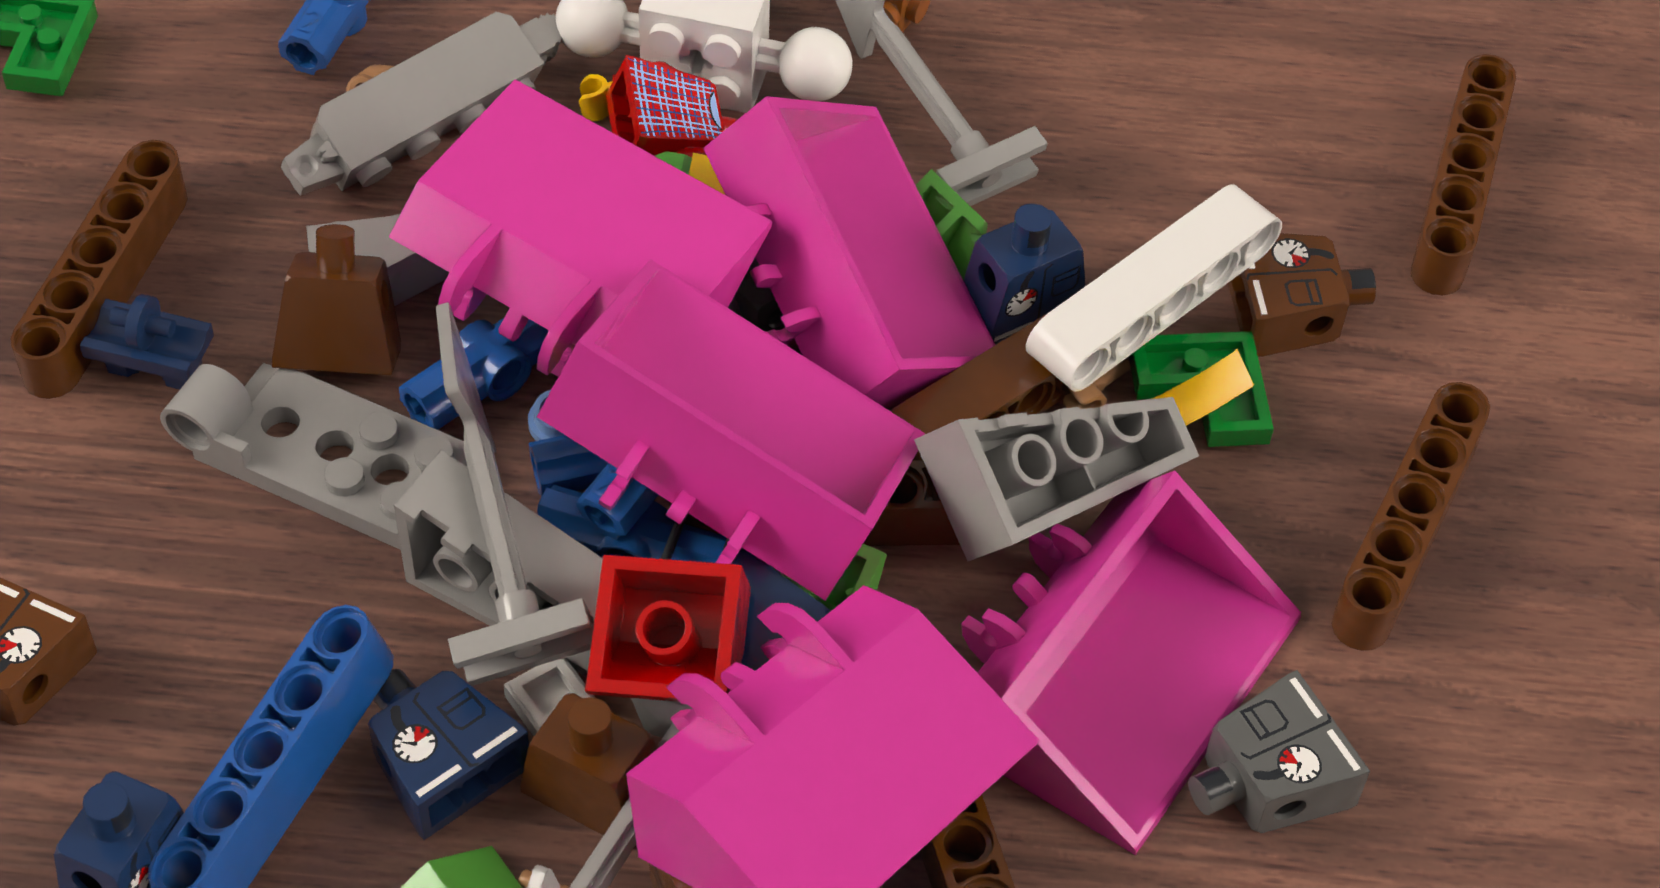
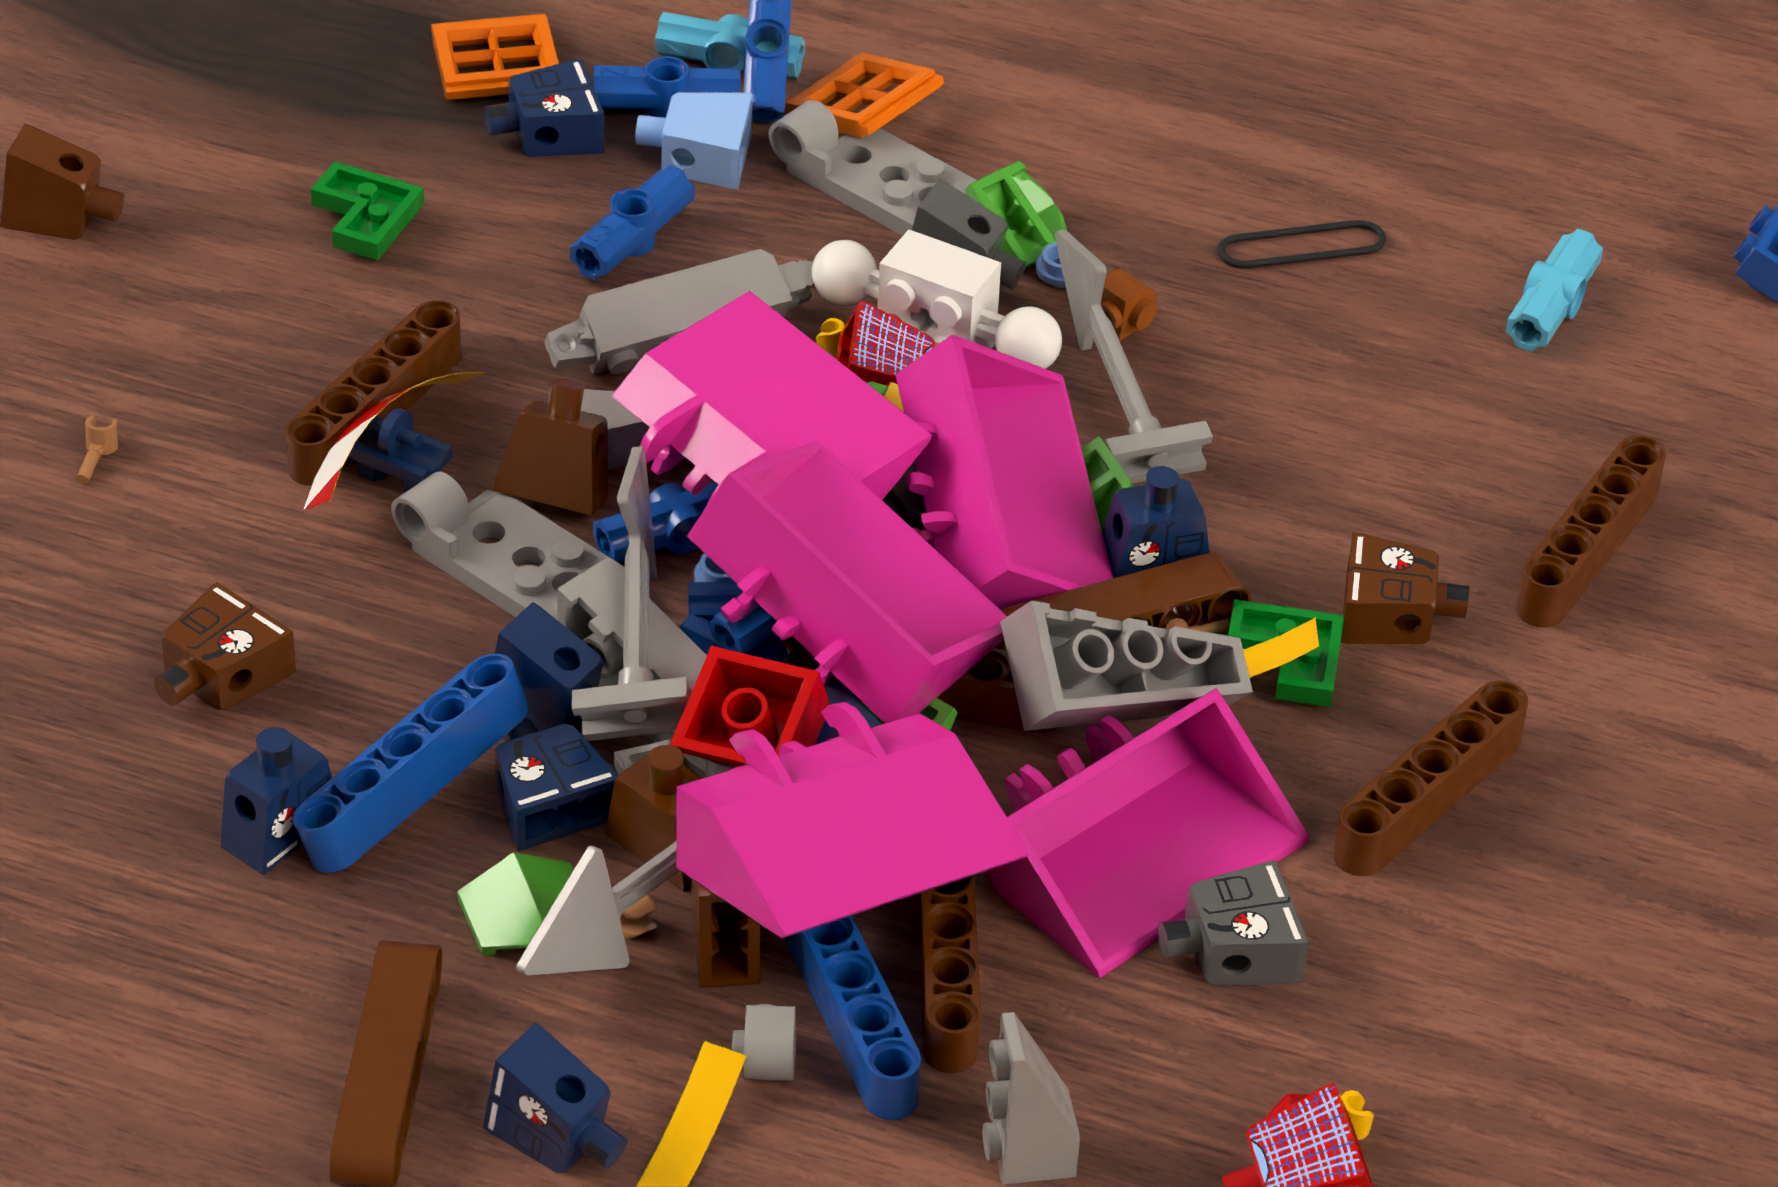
camera: 15 degrees right, 10 degrees down
(82, 364) = (331, 467): none -> sticker
(408, 600) = (549, 665): none -> dark blue torso
(1153, 287) = (1258, 556): white beam -> none

